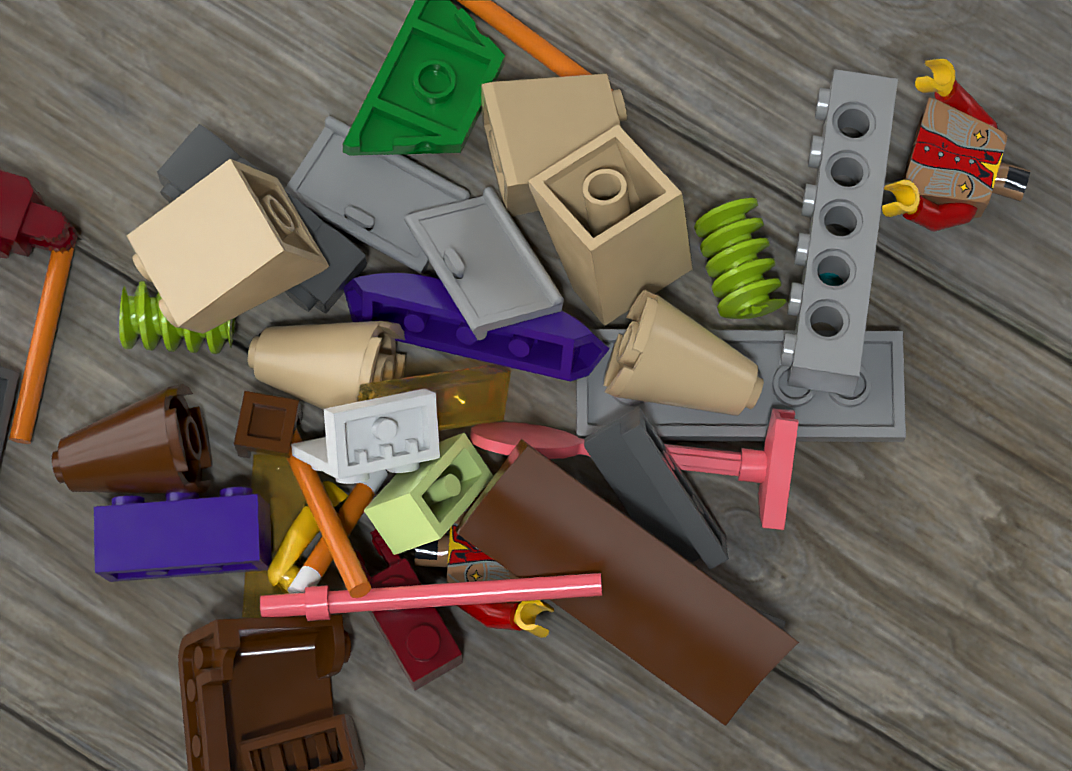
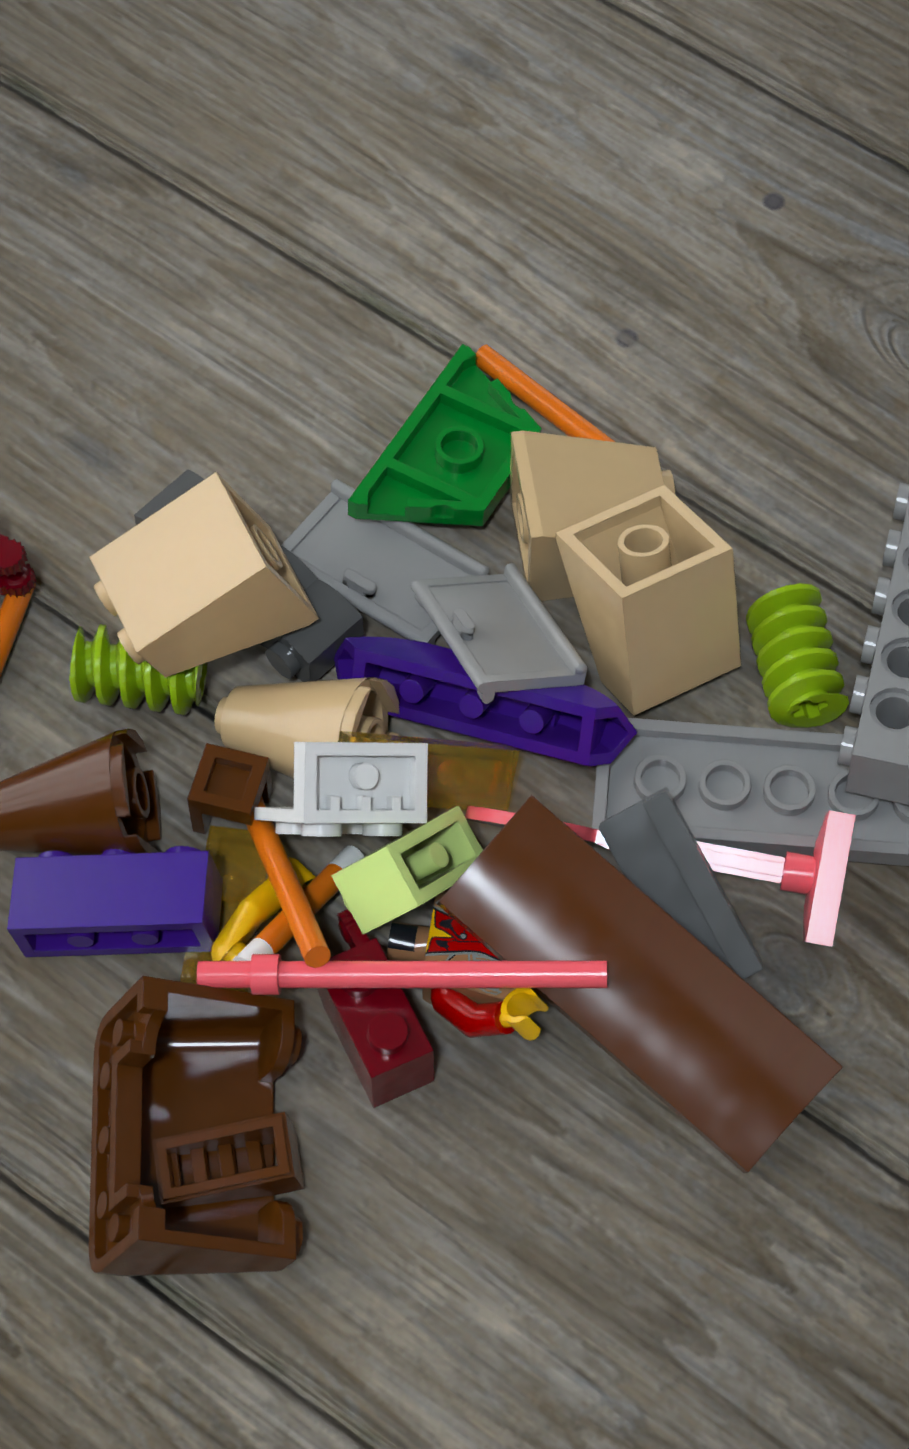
camera: 10 degrees right, 15 degrees down
(678, 363) = (720, 748): tan cone -> none

